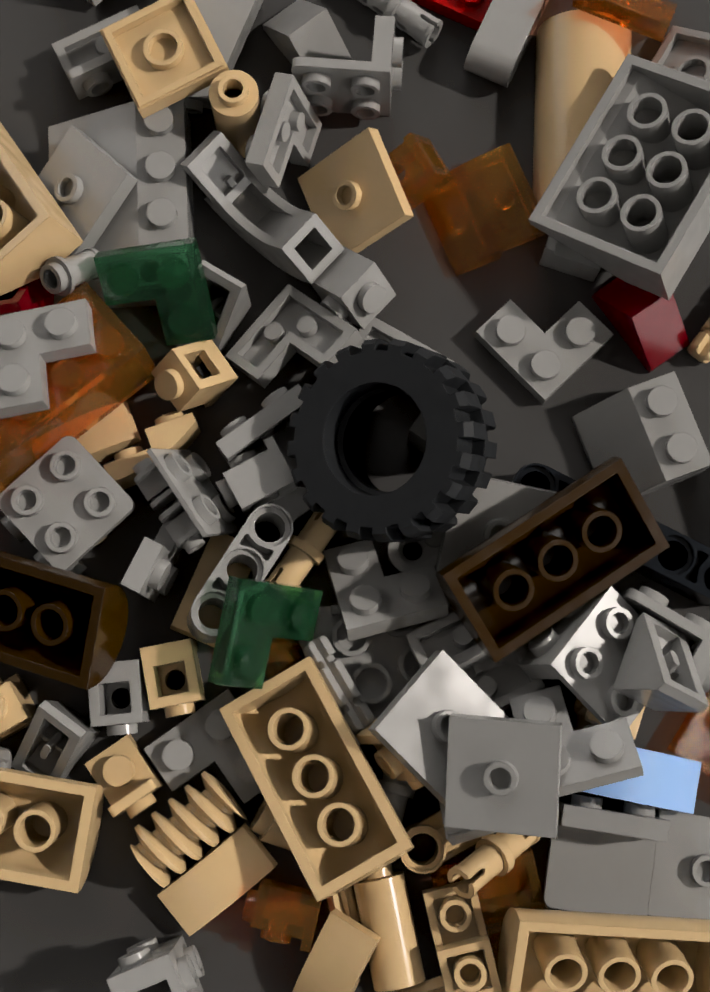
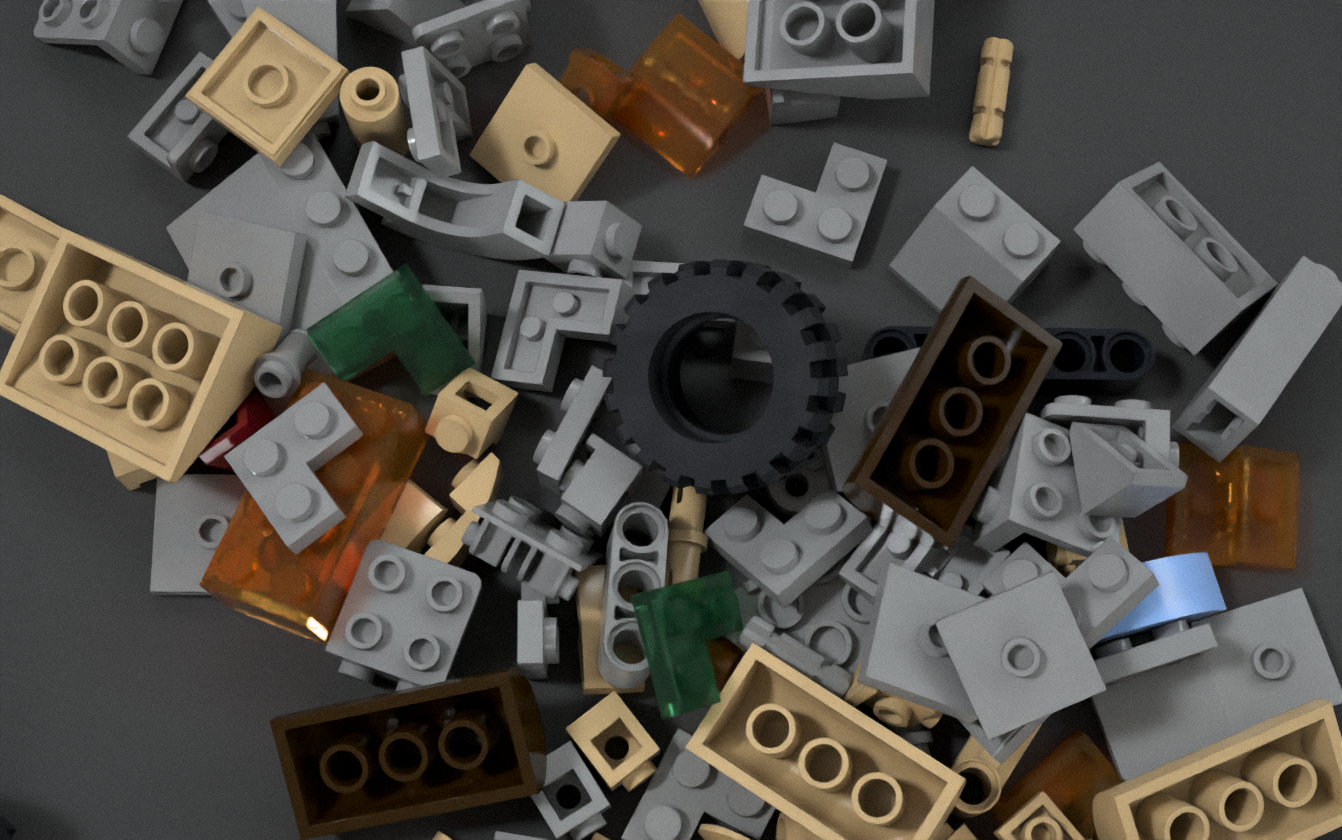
camera: 30 degrees left, 5 degrees down
(492, 857) = (1048, 756): tan pin -> none
(644, 321) = (911, 131): dark red slope -> none

